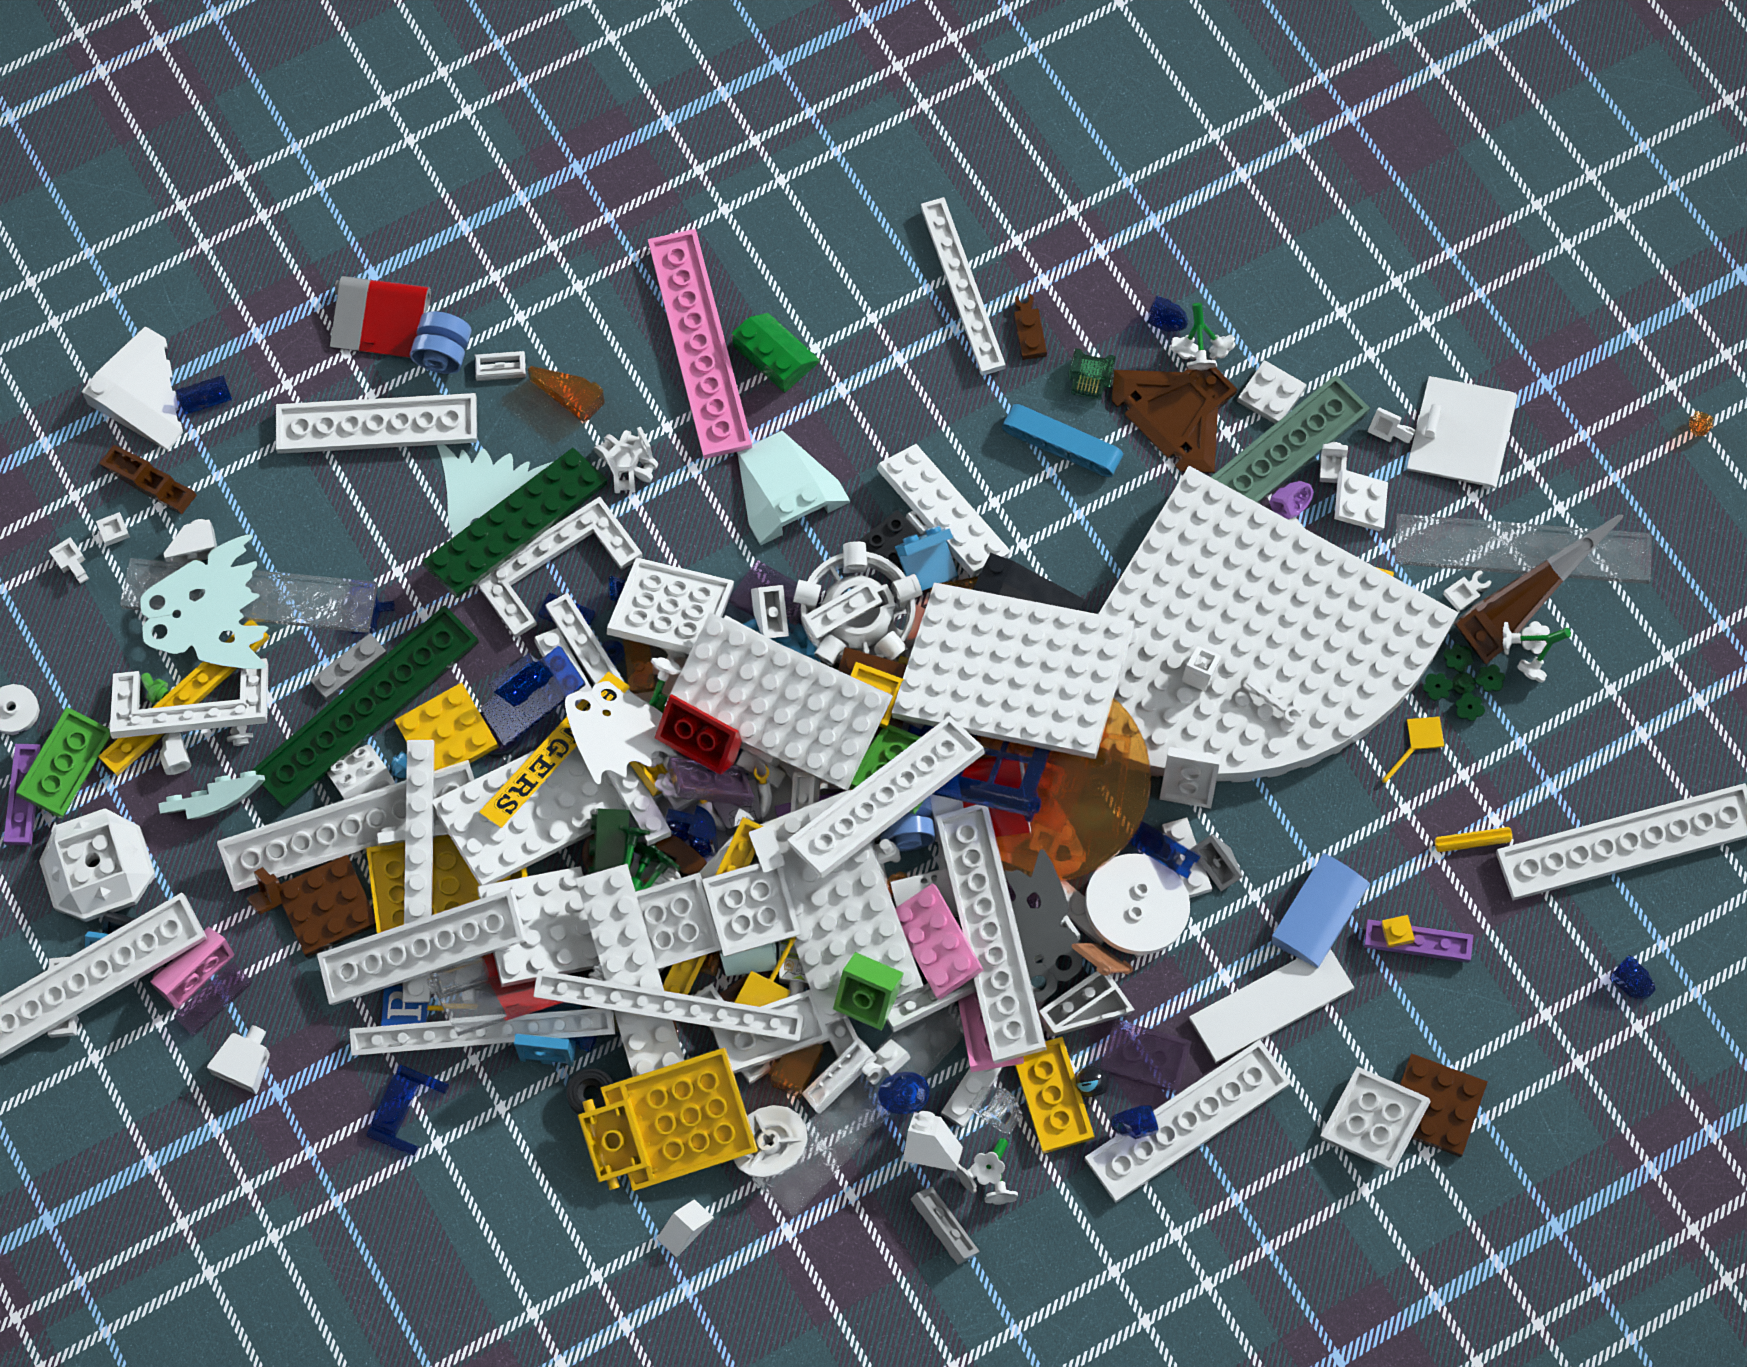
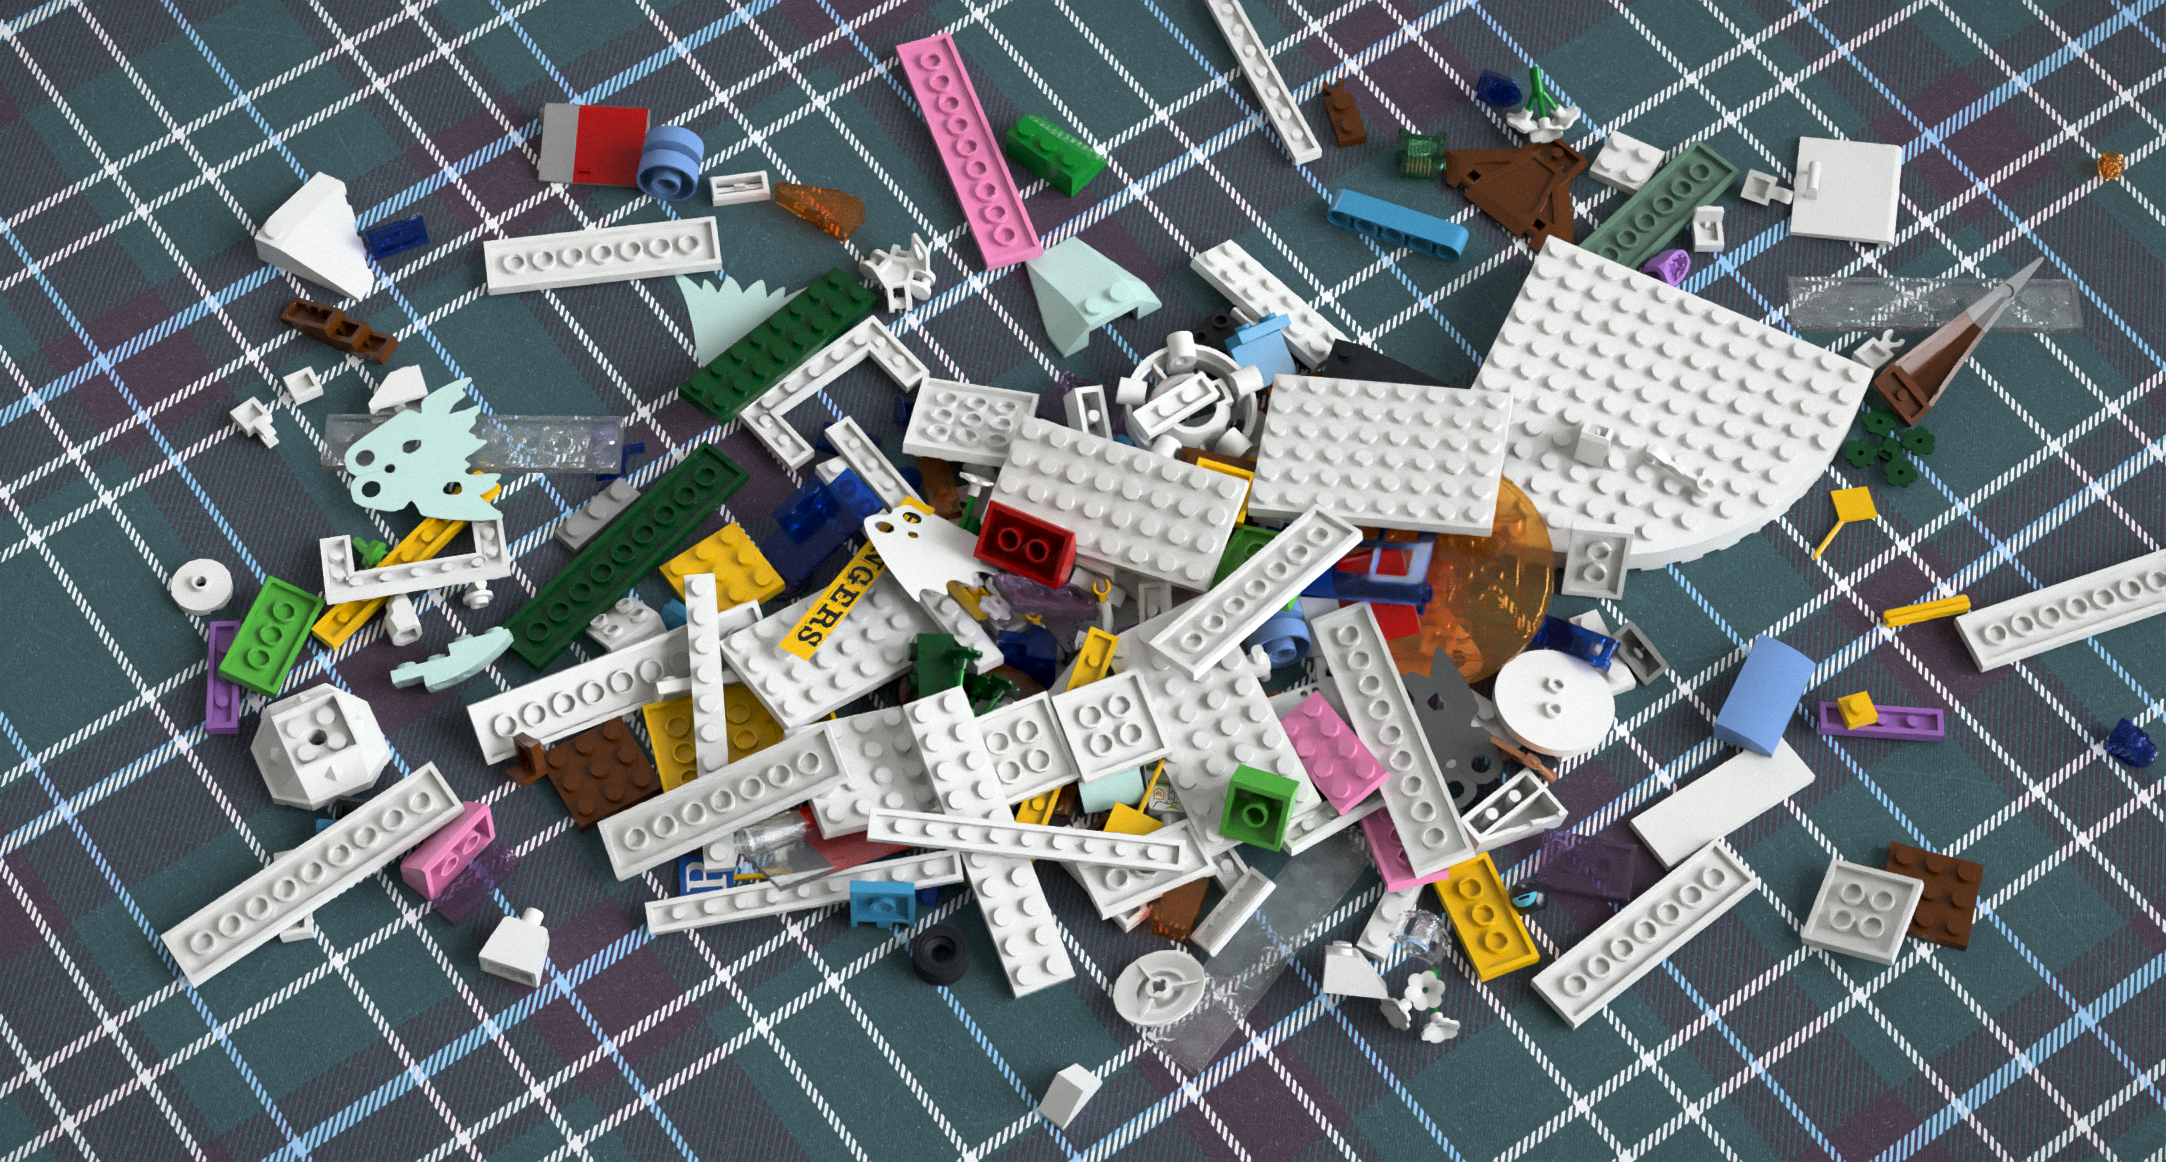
camera: 10 degrees left, 10 degrees down
(396, 1106) = (708, 985): clear blue plate -> none
(668, 1122) = (1038, 974): yellow plate -> none
(767, 848) = (1123, 658): white sticker -> none
(889, 1060) = (1290, 888): white plate -> none
(904, 1093) = (1311, 924): clear blue hat -> none
(944, 1225) = (1377, 1067): light grey plate -> none
(1135, 1122) = (1587, 933): clear blue rock -> none
(1361, 500) = (1745, 265): white plate -> none
(1538, 641) = (1964, 398): white plant -> none

